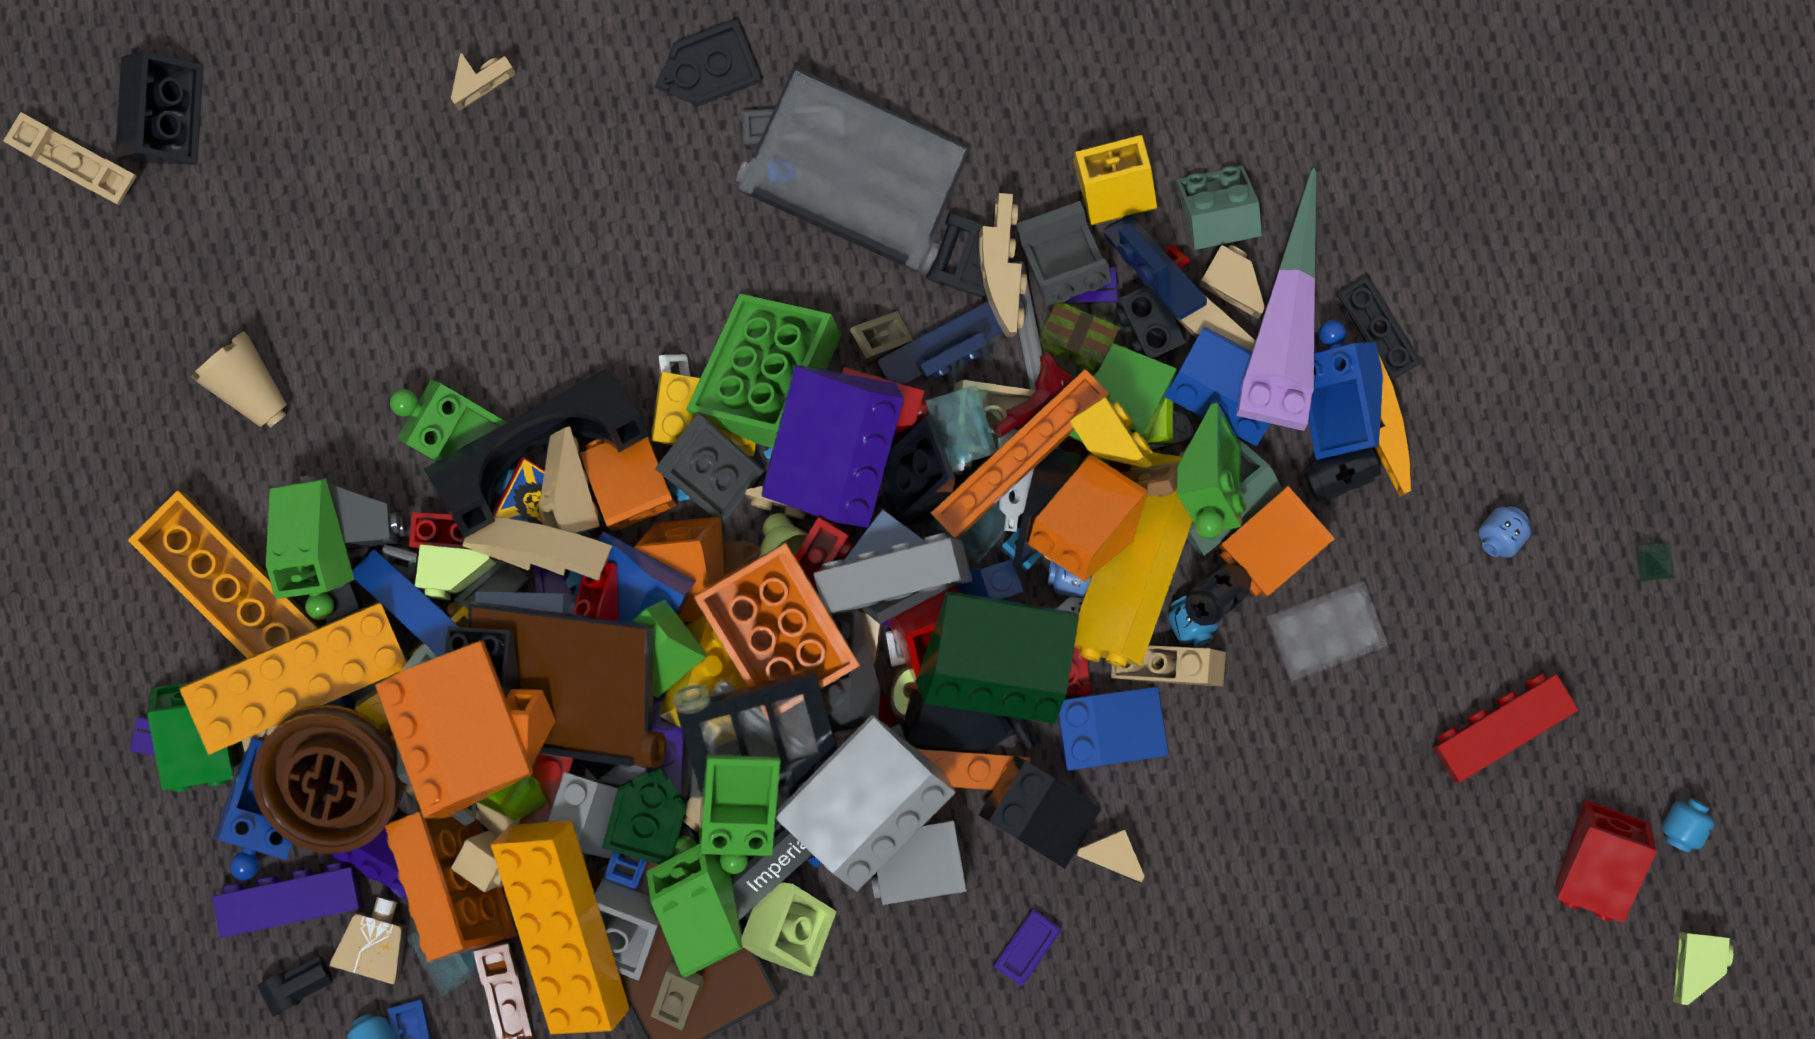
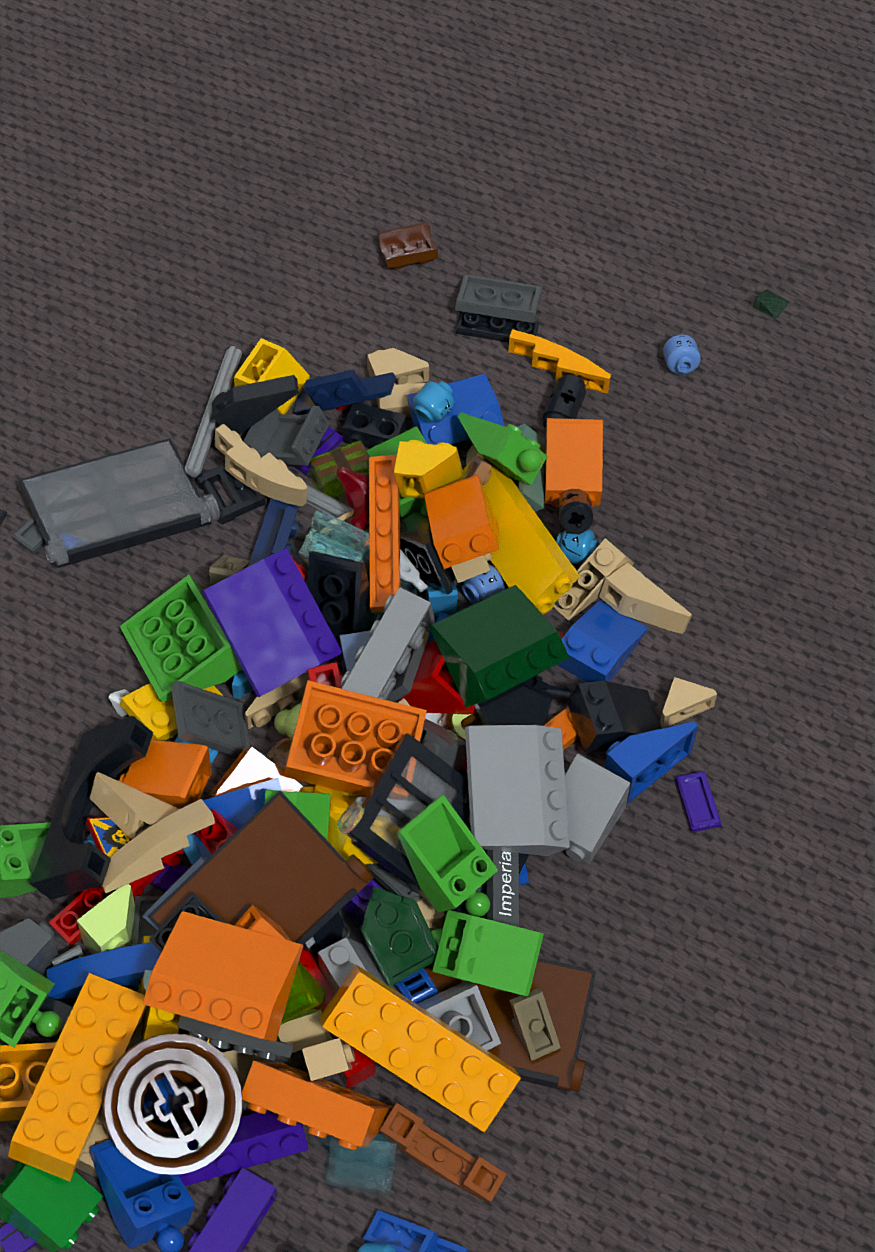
camera: 50 degrees left, 25 degrees down
(373, 944) = (310, 1205): tan torso -> none
(789, 928) = (558, 919): yellowish green slope -> none
(1007, 872) = (650, 755): none -> blue slope
(1034, 159) = (209, 424): none -> light grey axle
(1061, 194) = (251, 402): none -> black slope
(1185, 720) = (642, 600): none -> tan slope
(1208, 366) = (434, 401): none -> dark azure head
(1219, 207) = (344, 343): sand green slope -> none
(1281, 365) = (469, 371): lavender plate -> none
(1327, 631) = (652, 487): clear plate -> none
(1345, 395) = (520, 364): blue slope -> none
(1390, 161) = (407, 245): none -> reddish brown bracket
(1410, 302) = (498, 298): none -> dark grey tile
(1505, 727) = (800, 443): red brick -> none

